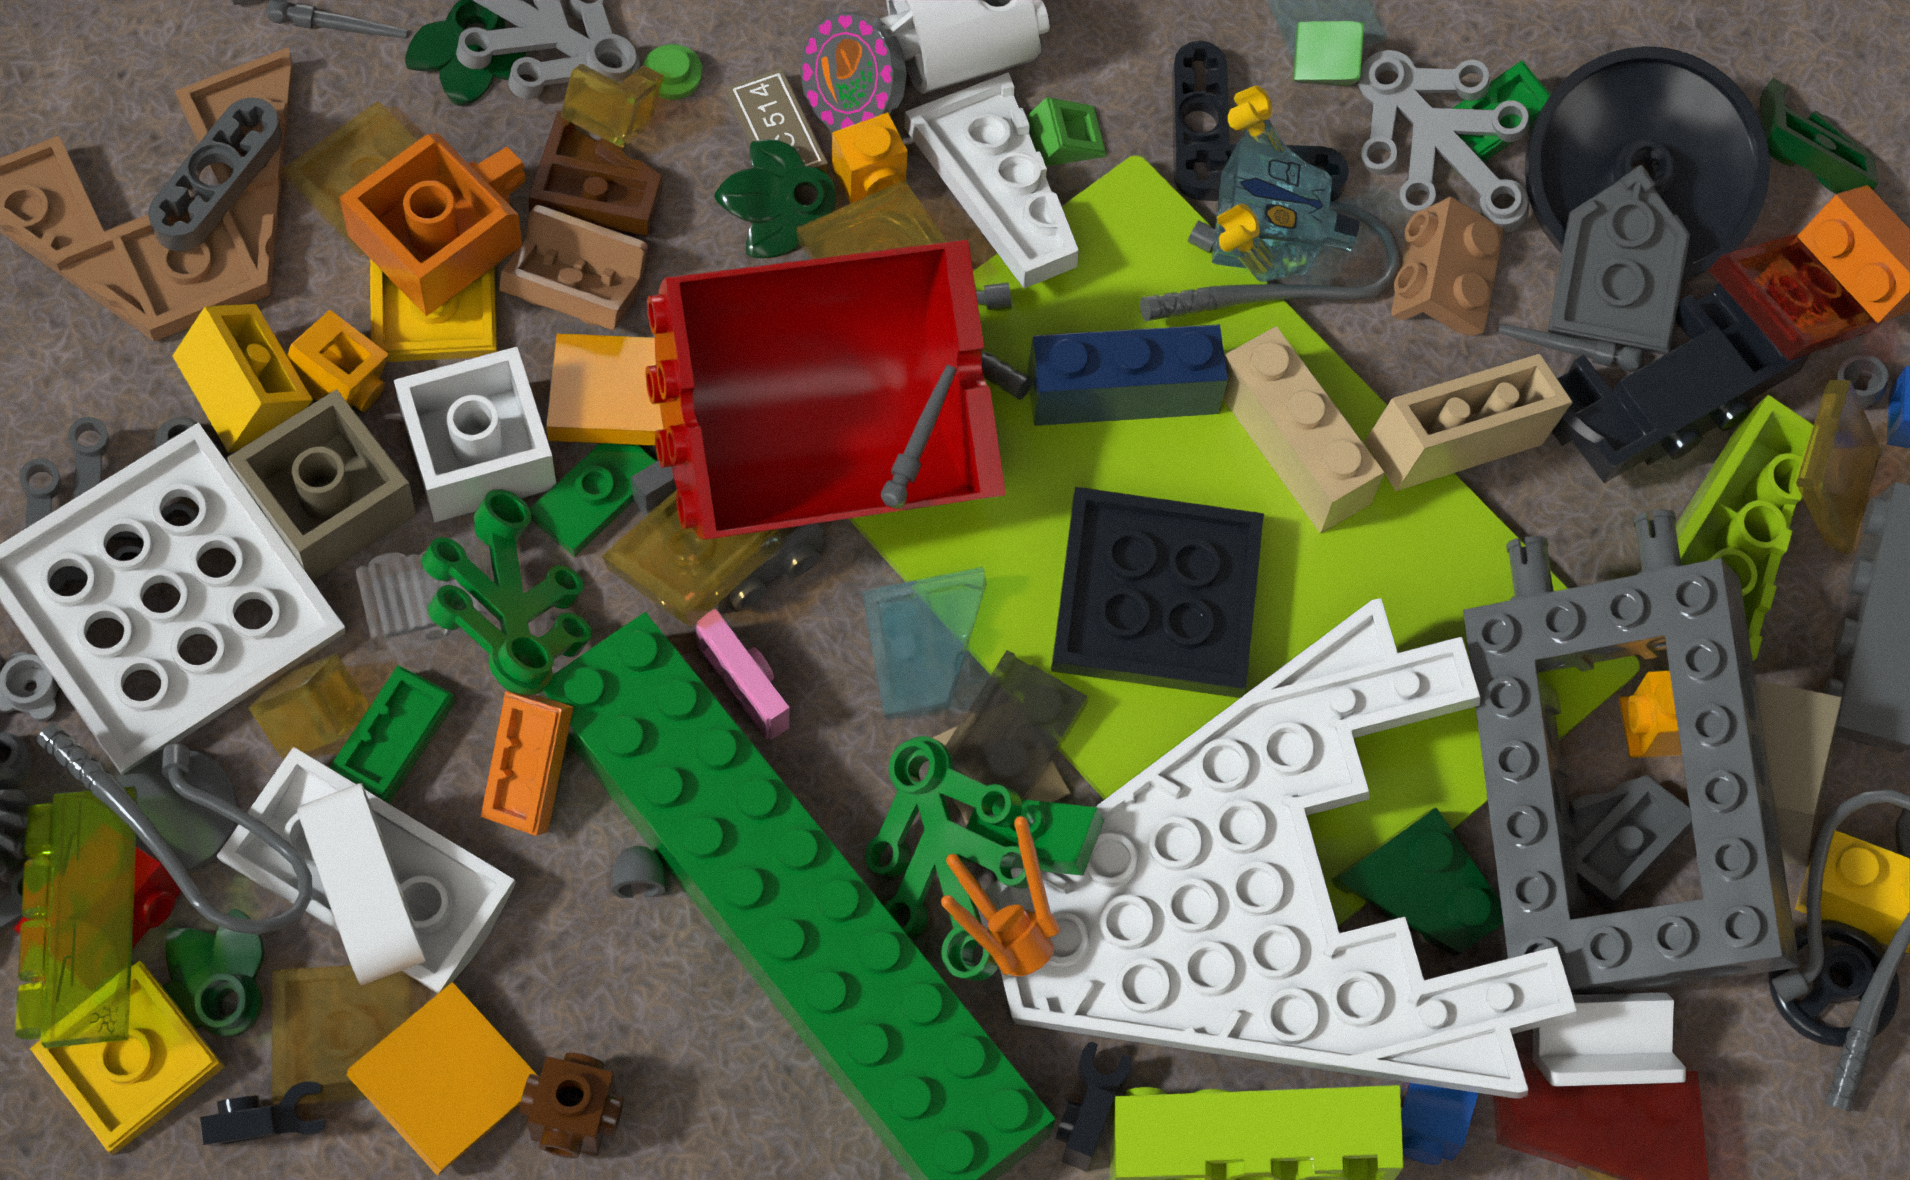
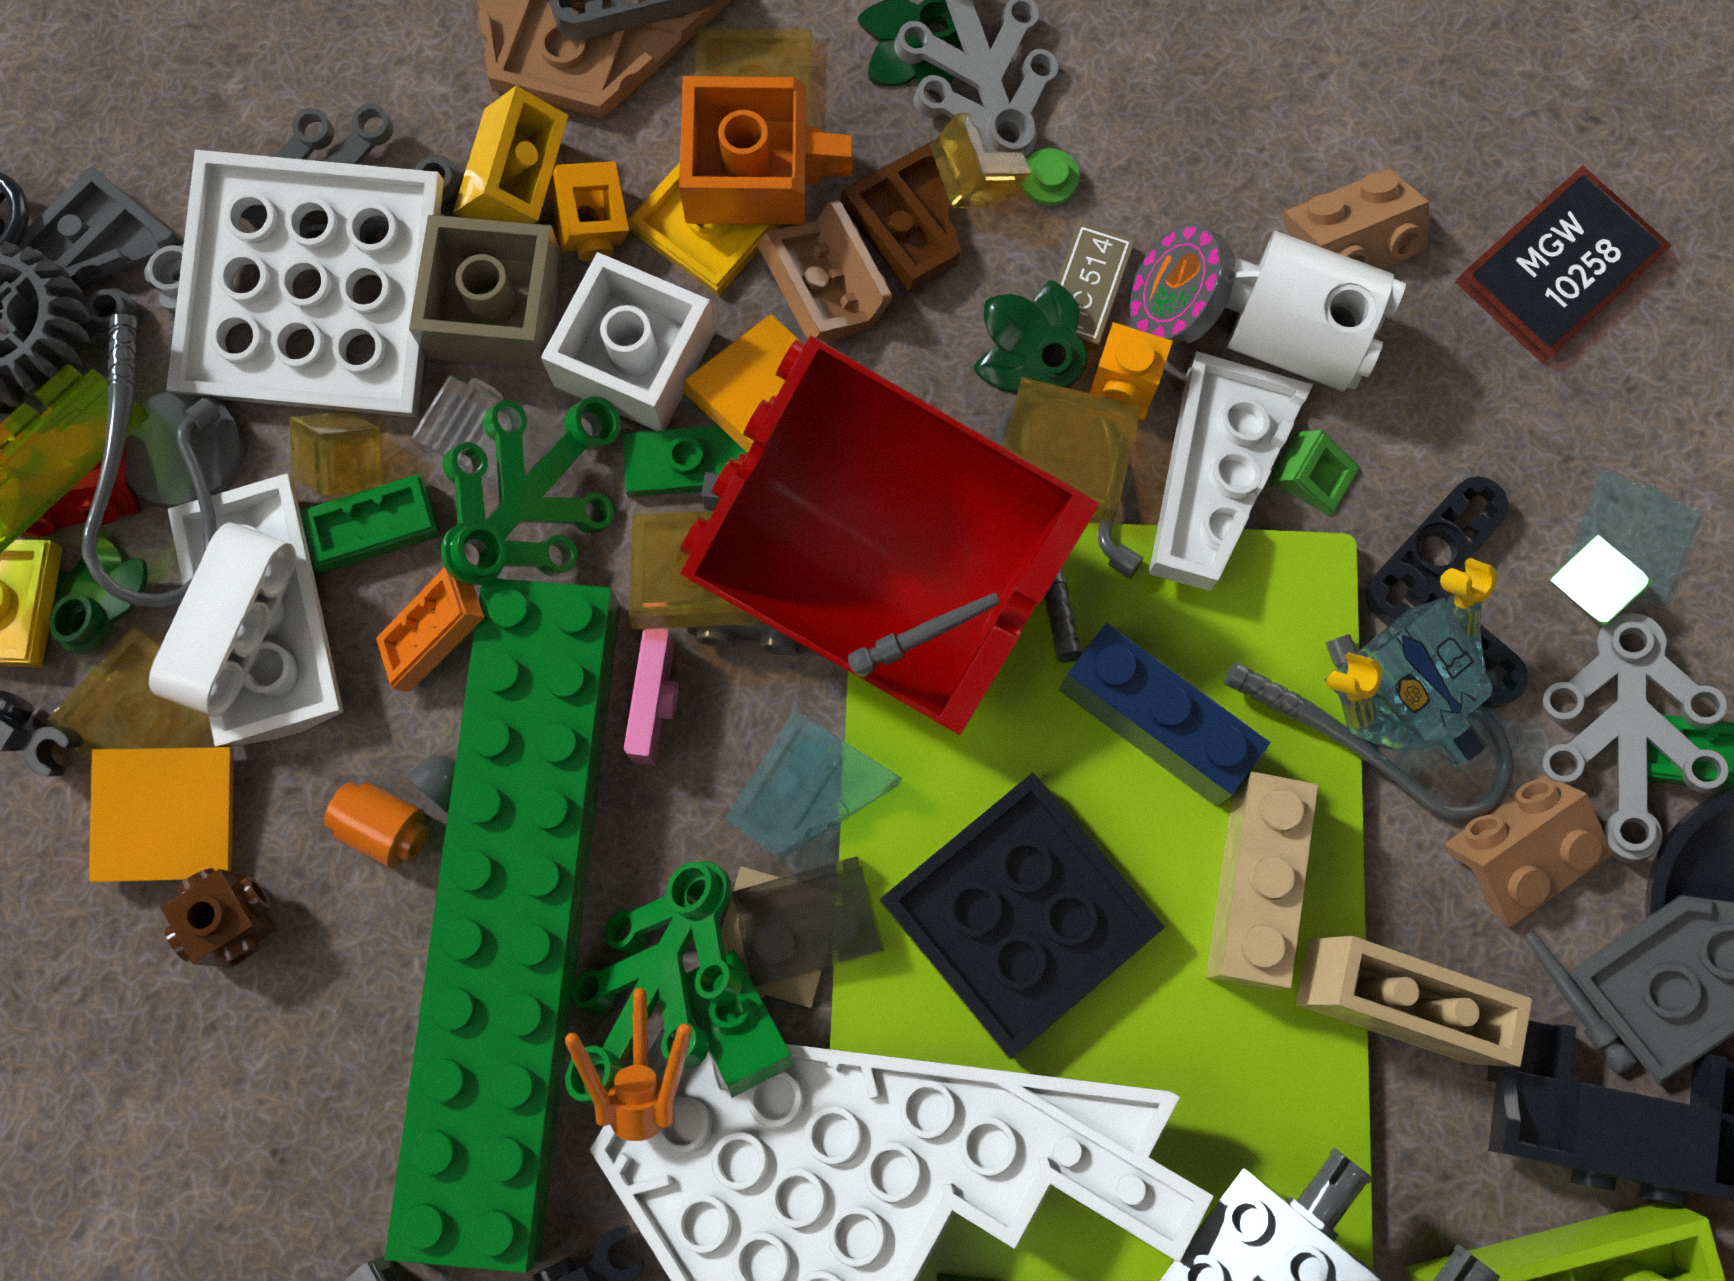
camera: 50 degrees right, 10 degrees up
(623, 940) = (376, 823): none -> orange brick

